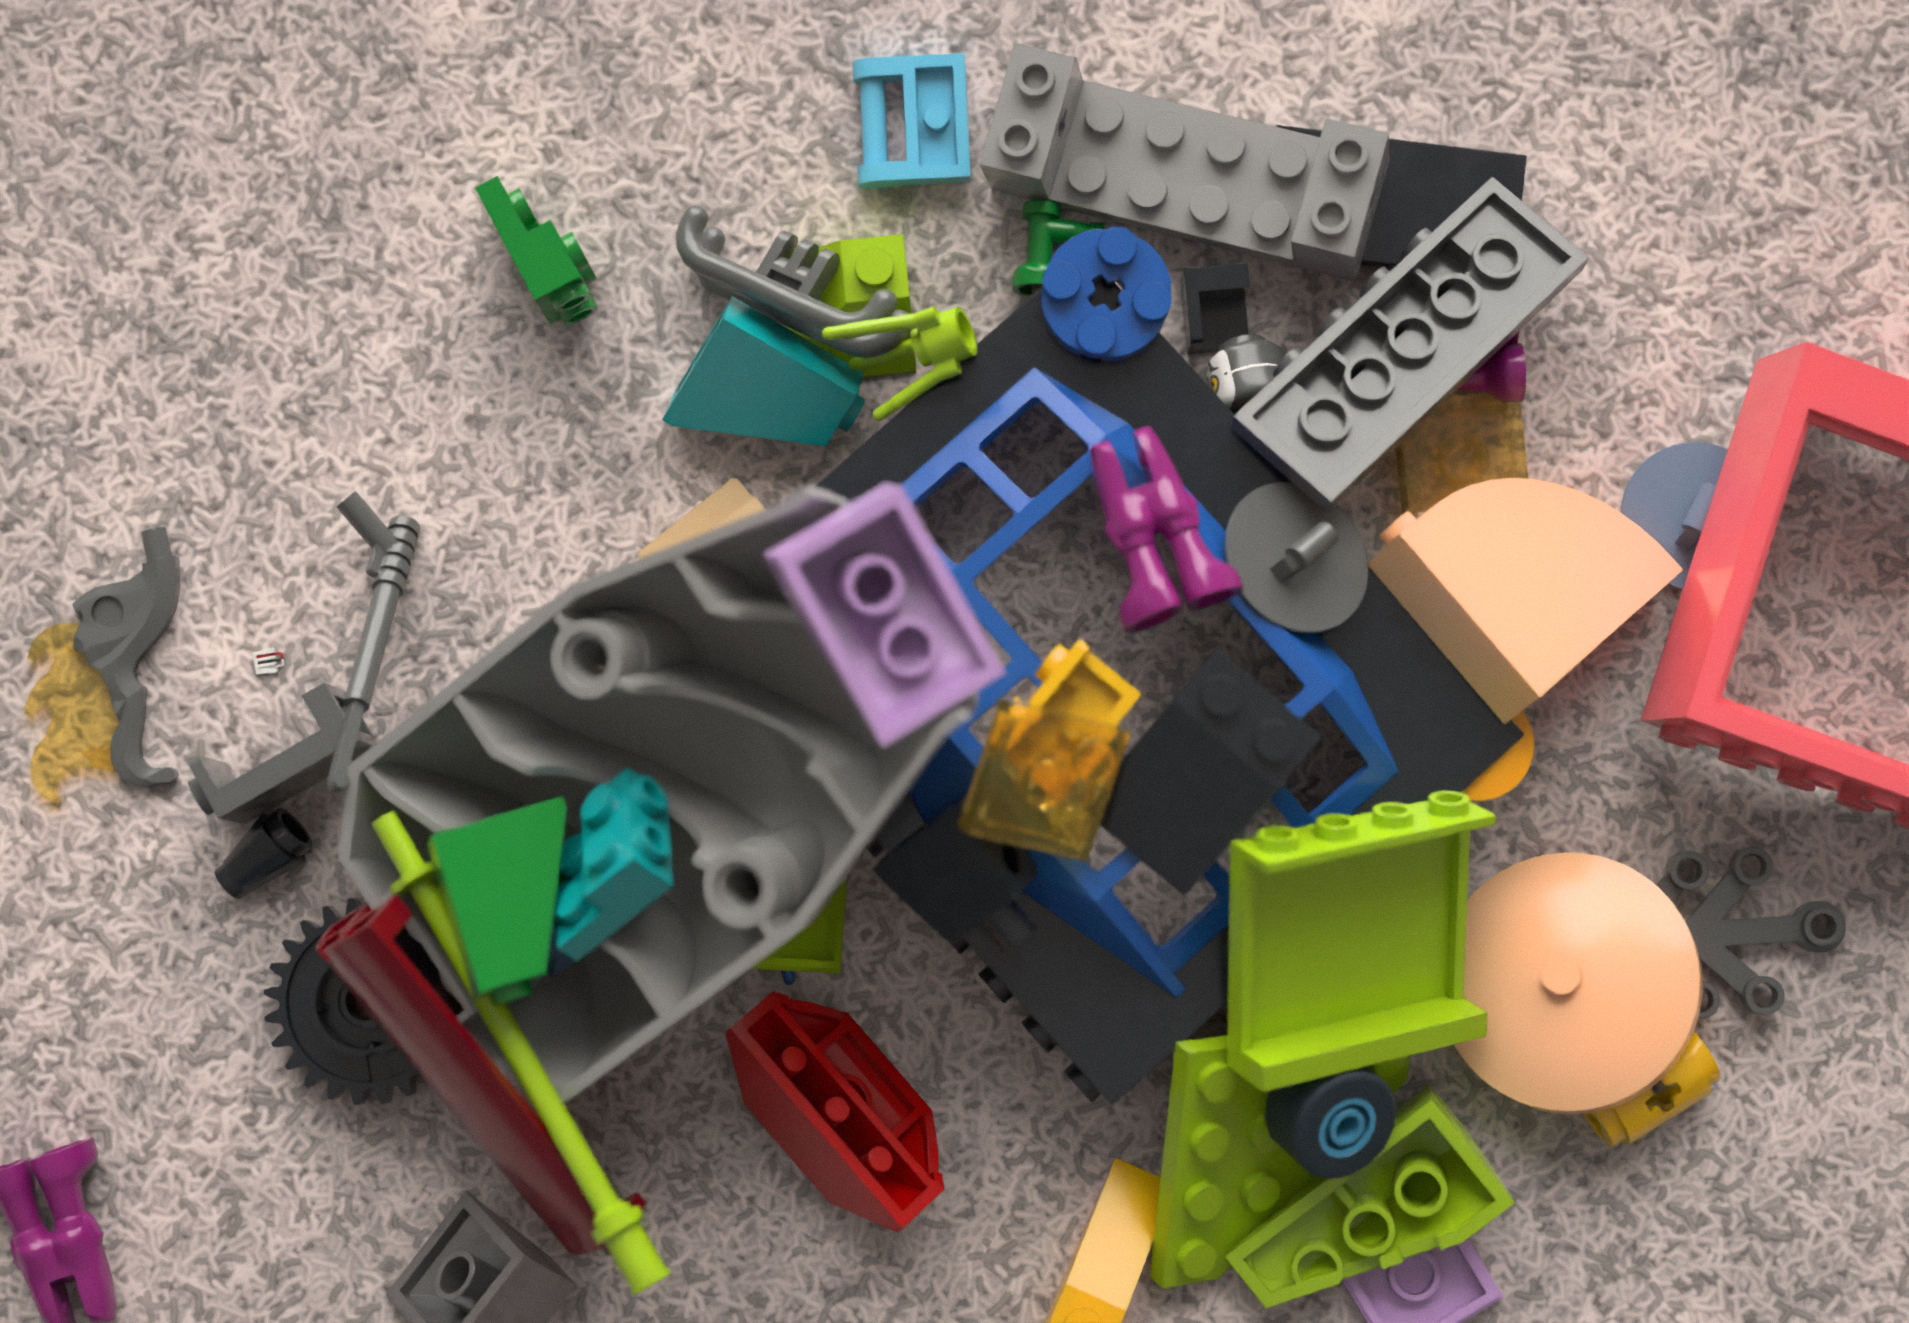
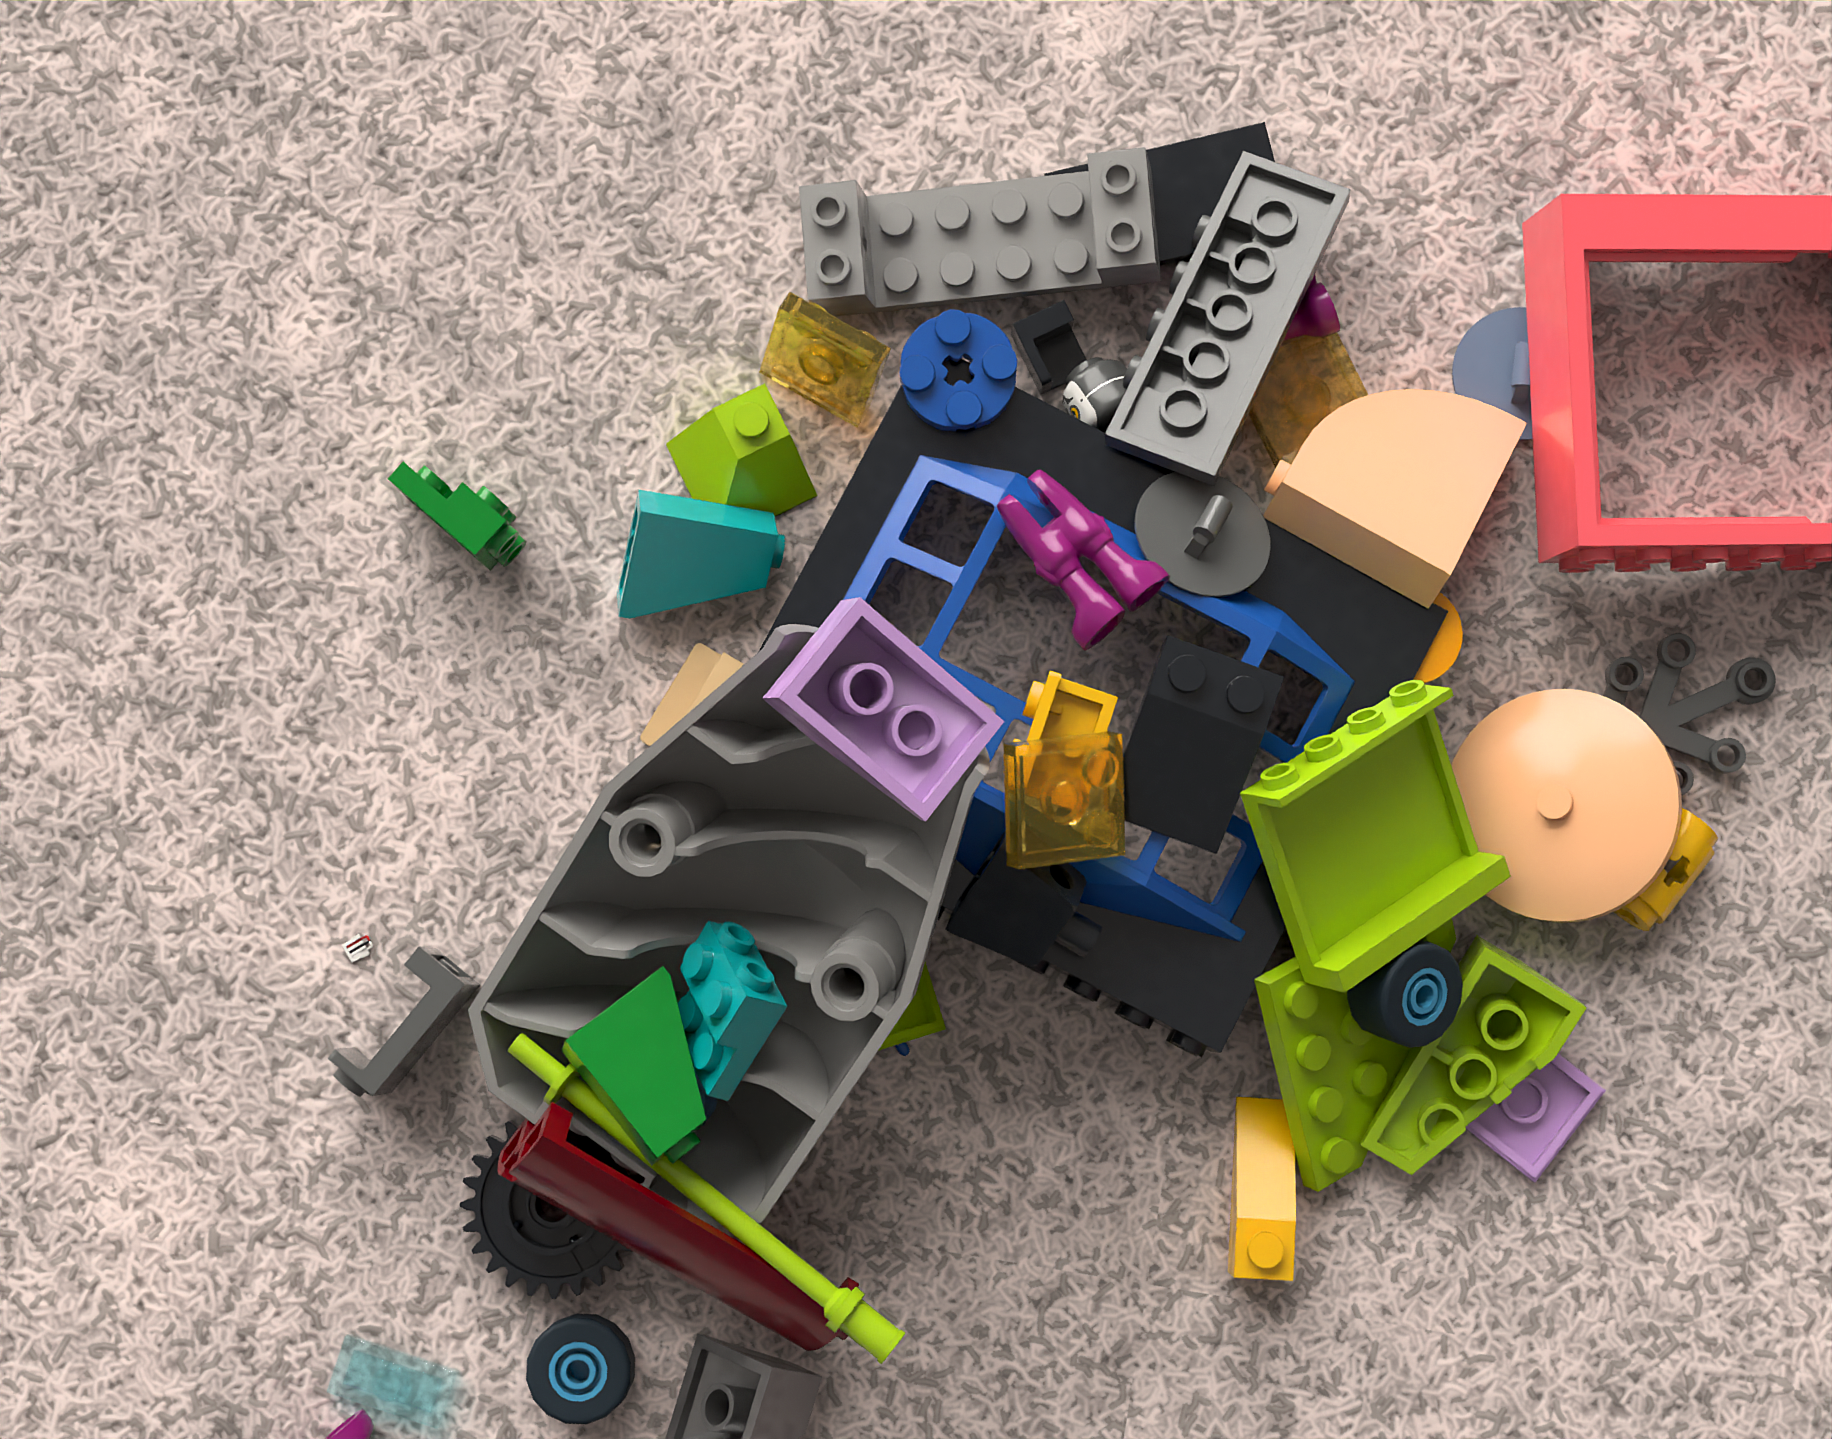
camera: 20 degrees left, 0 degrees up
(94, 679) = (213, 1017): piece -> none
(134, 1121) = (392, 1381): none -> clear light blue plate
(264, 853) = (417, 1112): black cone -> none
(352, 1176) = (590, 1350): none -> black wheel
(389, 567) = (433, 827): dark grey piece -> none
(784, 285) = (687, 466): dark grey piece -> none
(837, 1108) = (988, 1144): red wedge -> none
(933, 120) = (749, 271): medium azure plate -> none
(937, 340) = (828, 462): lime plant -> none
(974, 232) = (824, 359): none -> clear yellow plate
(1043, 231) = (888, 333): green piece -> none

